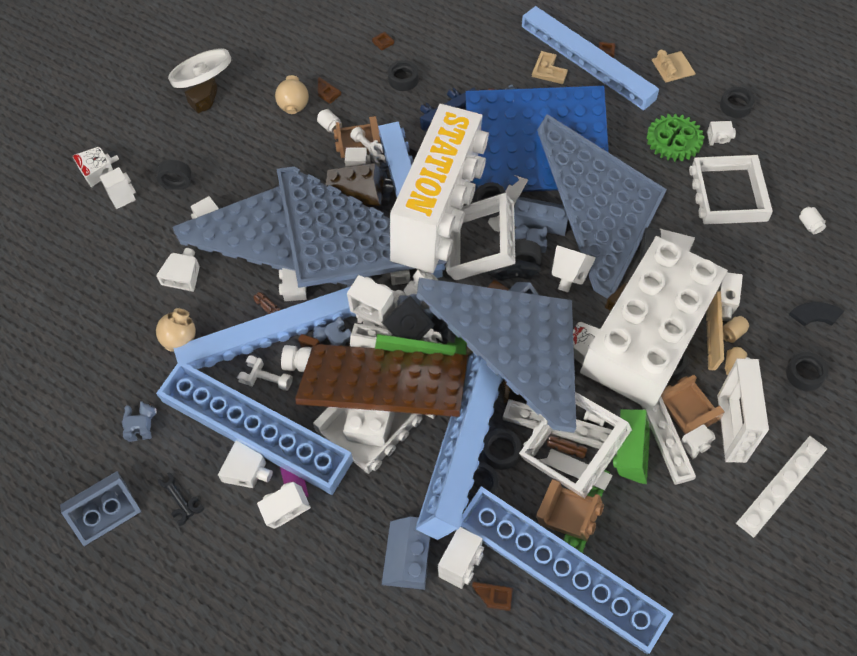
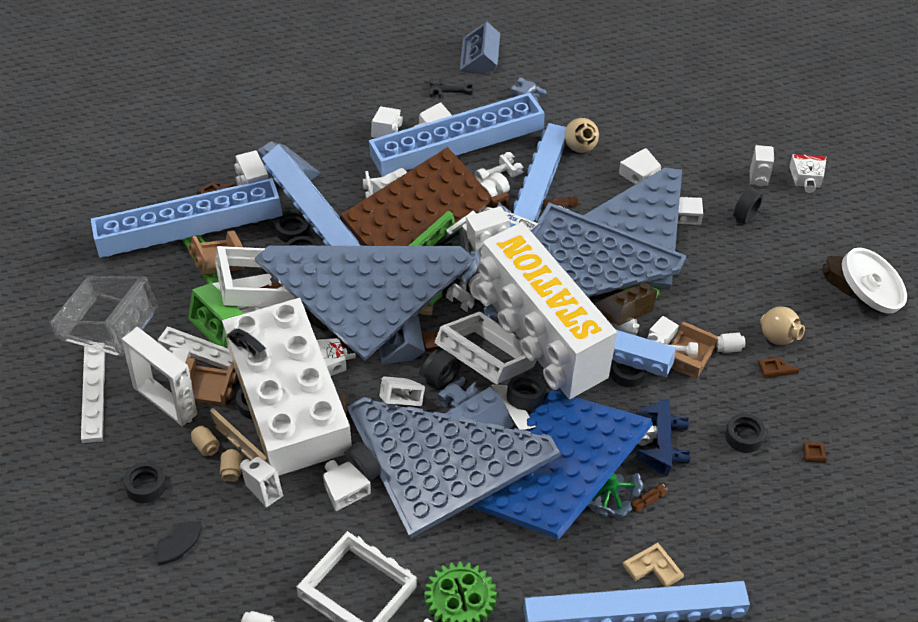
camera: 125 degrees right, 10 degrees down
(331, 310) = (515, 219): none -> white sticker
(676, 335) = (246, 341): none -> black tile
(758, 522) = (134, 310): none -> clear windscreen

